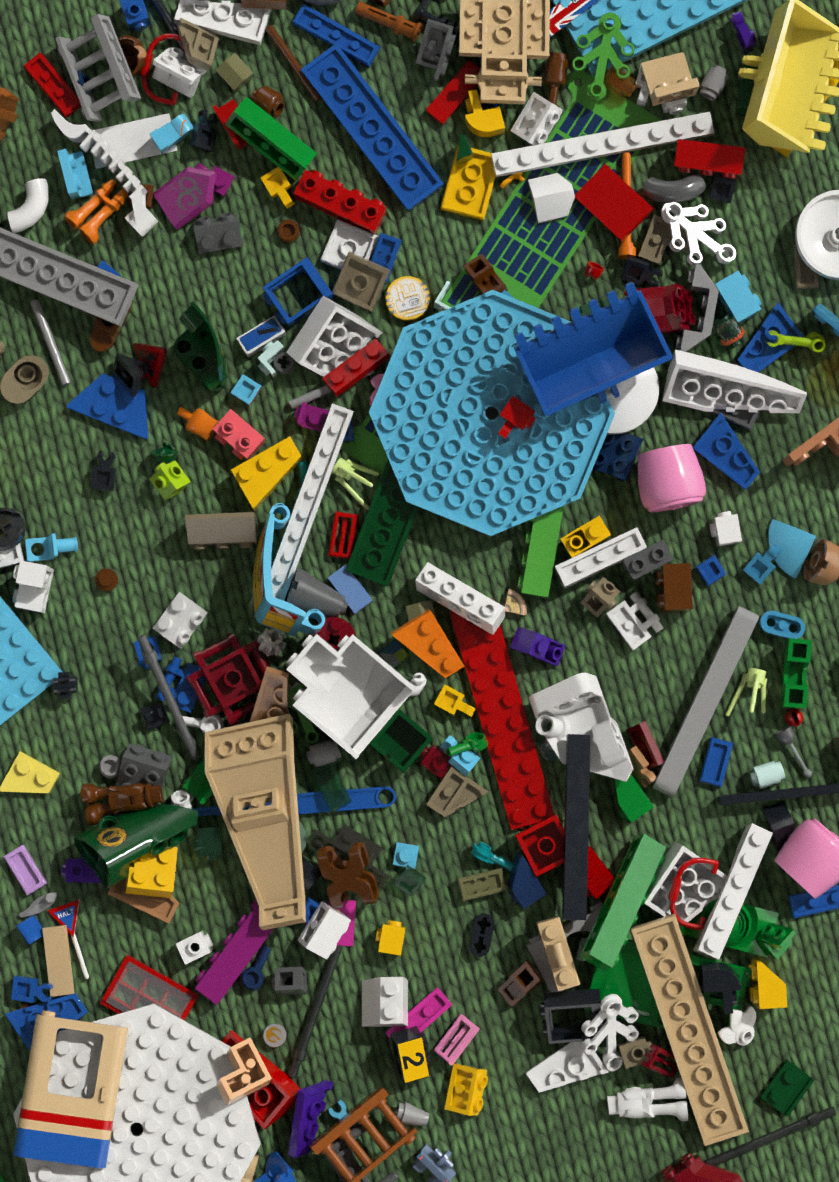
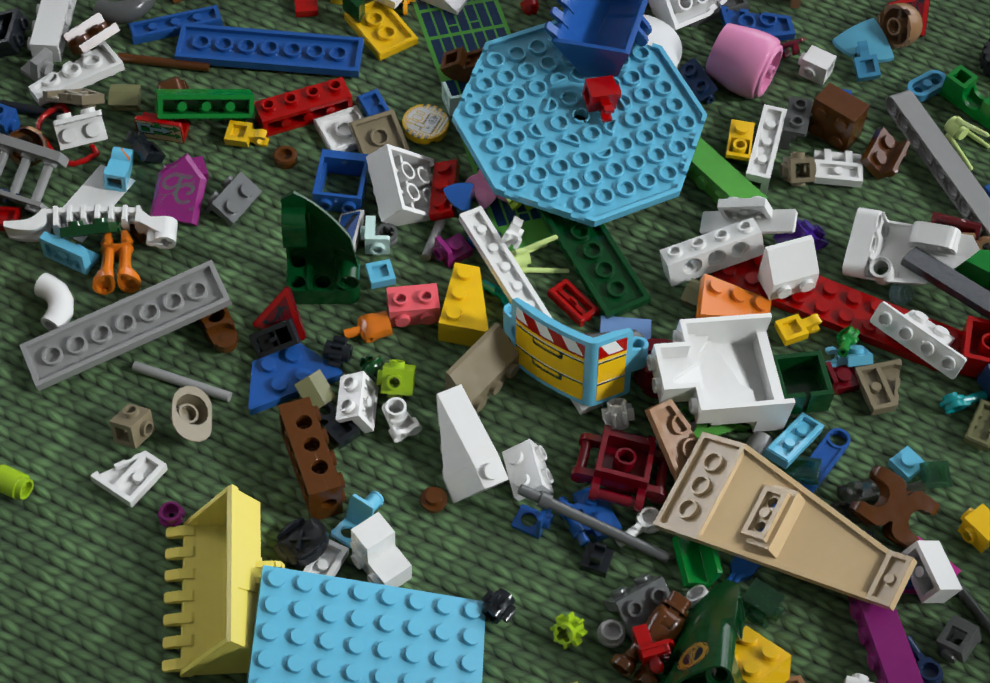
camera: 55 degrees left, 30 degrees down
(58, 470) = (312, 459): none -> reddish brown brick
(86, 741) = (575, 627): none -> lime gear
(94, 176) = (98, 226): none -> dark green plate
(102, 803) = (651, 652): none -> red piece
(112, 436) = (316, 388): none -> olive piece
(130, 469) = (357, 400): none -> white bracket
(140, 512) = (399, 420): none -> white plate
(151, 573) = (466, 449): none -> white wedge
(157, 421) = (338, 351): none -> black gear
(352, 388) = (460, 196): none -> blue tile
(352, 771) = (793, 440): none -> medium azure tile
(357, 449) = (513, 233): none -> white plate
(485, 665) = (789, 268): none -> white slope
(515, 603) = (739, 209): none -> white bracket
(515, 794) = (921, 337): none -> white bracket
(676, 645) = (884, 154): none -> reddish brown bracket
(730, 494) = (794, 47): none -> dark red piece

